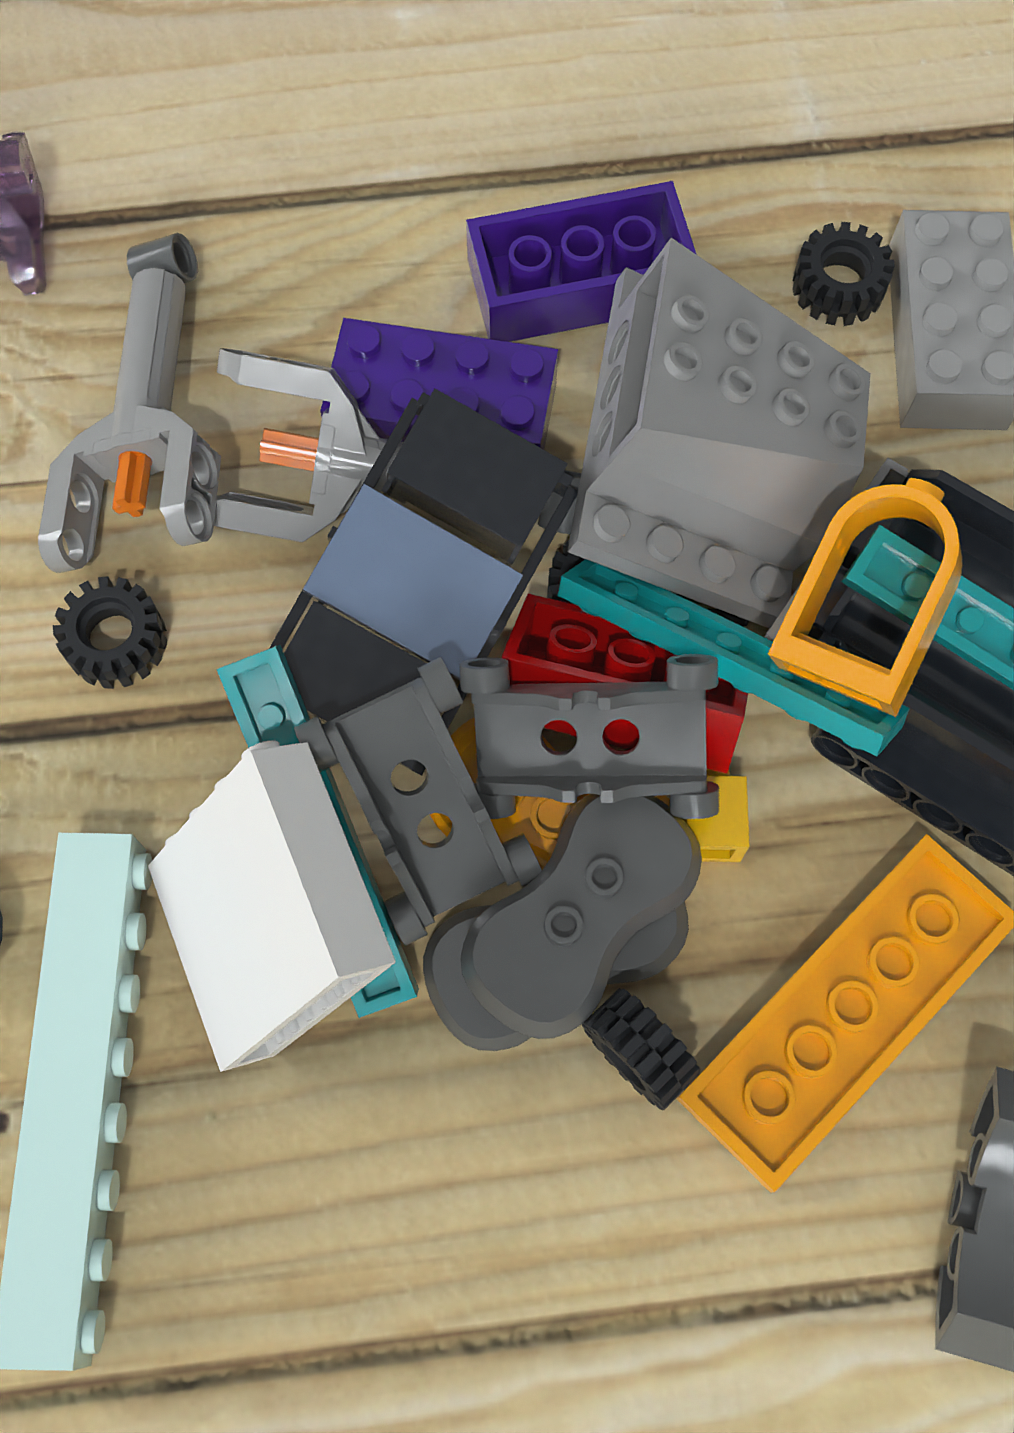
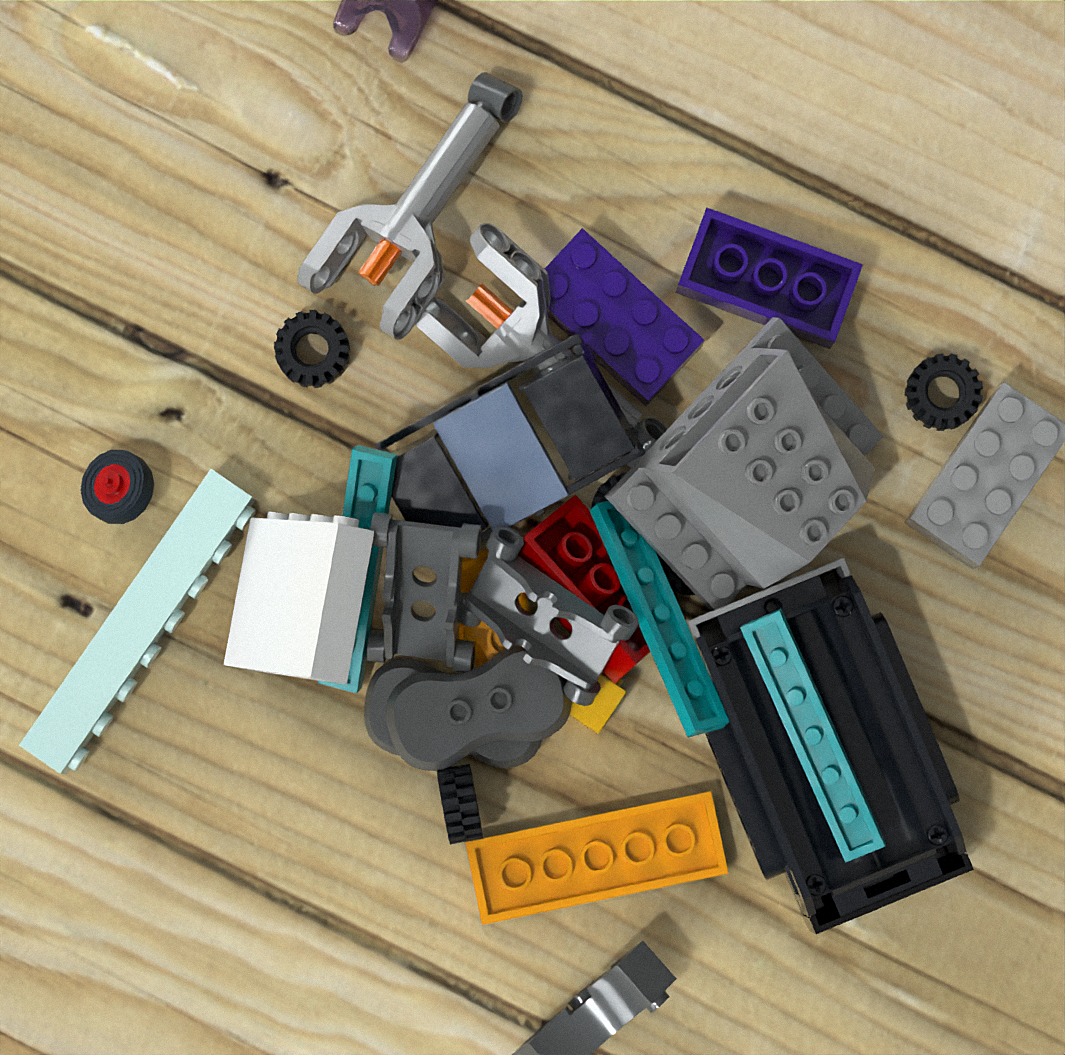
camera: 30 degrees right, 15 degrees up
(836, 668) = (695, 677): light orange window -> none

